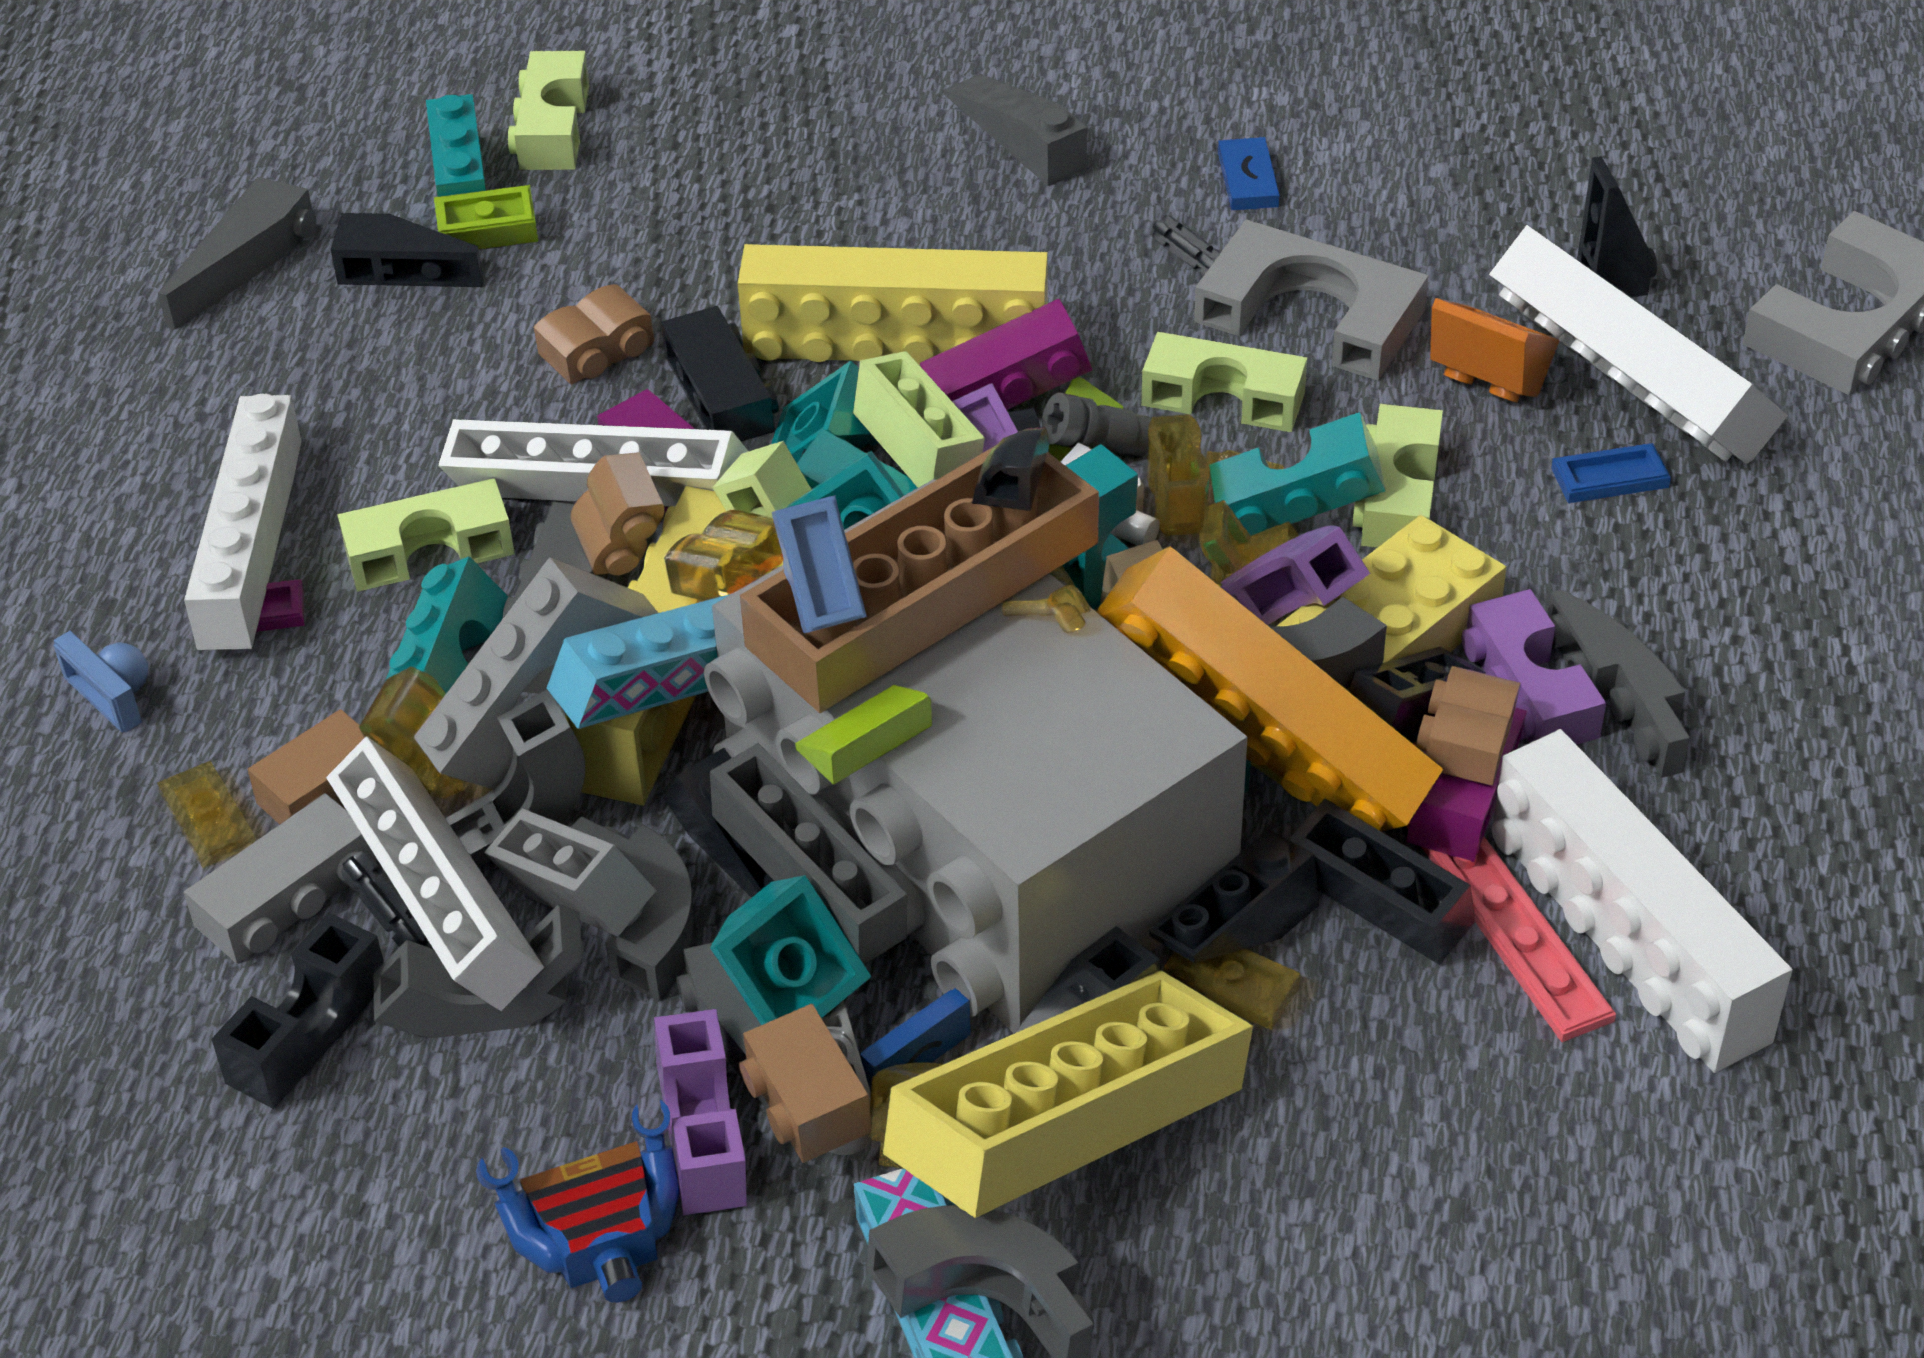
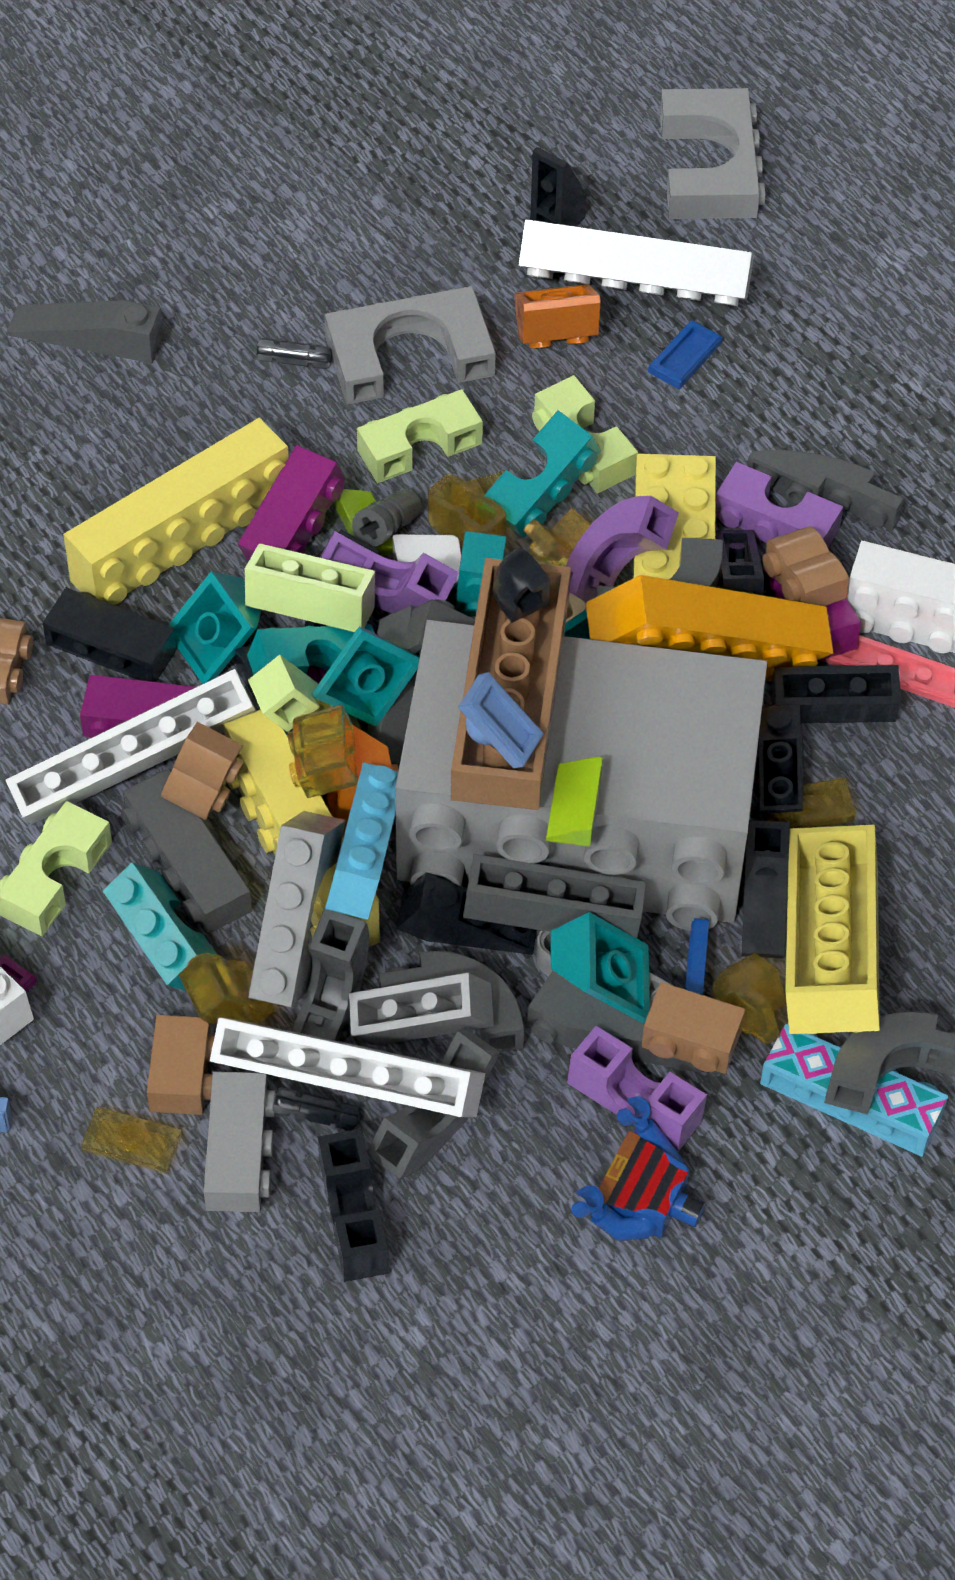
camera: 45 degrees left, 10 degrees up
(1064, 604) = (598, 650): clear yellow hand -> none
(1248, 173) = (270, 276): blue tile -> none

